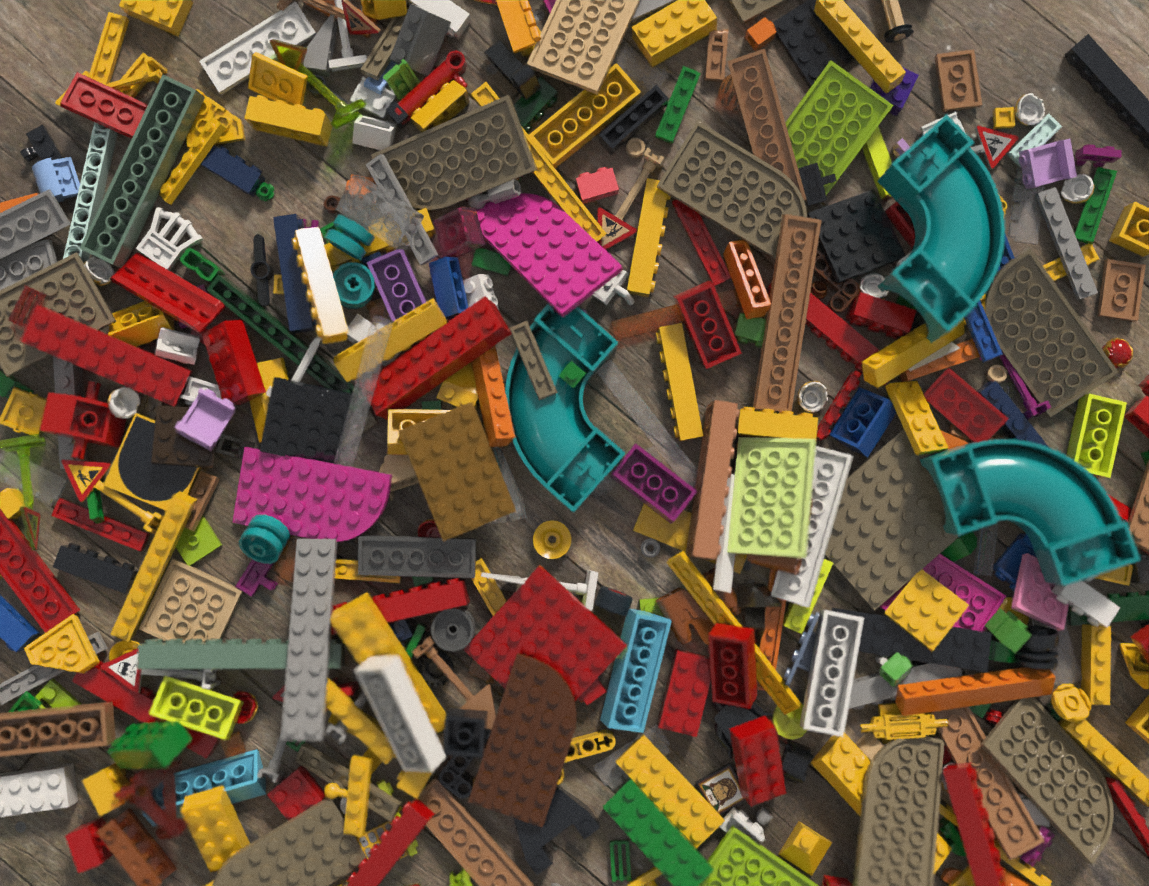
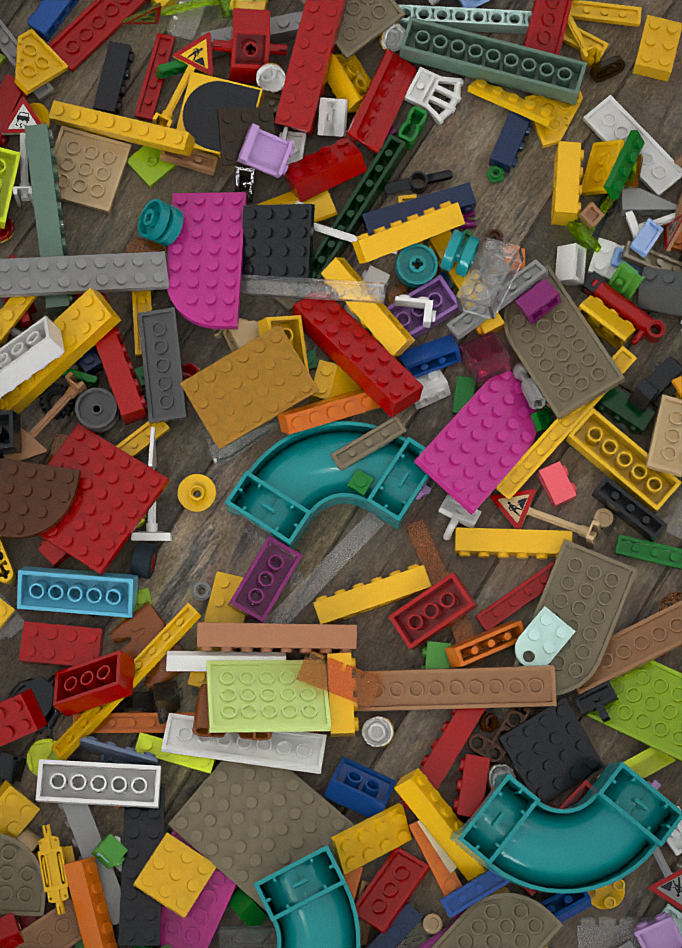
camera: 85 degrees right, 10 degrees down
(170, 59) = (607, 69): none -> dark brown plate
(254, 577) = (123, 221): magenta plate -> none
(279, 58) = (624, 164): none -> green plate
(328, 101) = (590, 215): none -> medium nougat tile
(360, 51) = (646, 237): none -> light blue tile
(408, 279) = (422, 303): none -> white bracket
(409, 169) = (538, 301): none -> magenta brick
(531, 189) = (541, 420): none -> green plate
(752, 221) = (543, 638): none -> light aqua plate
(765, 430) = (332, 679): none -> clear orange windscreen
(839, 401) = (362, 755): red hinge -> none

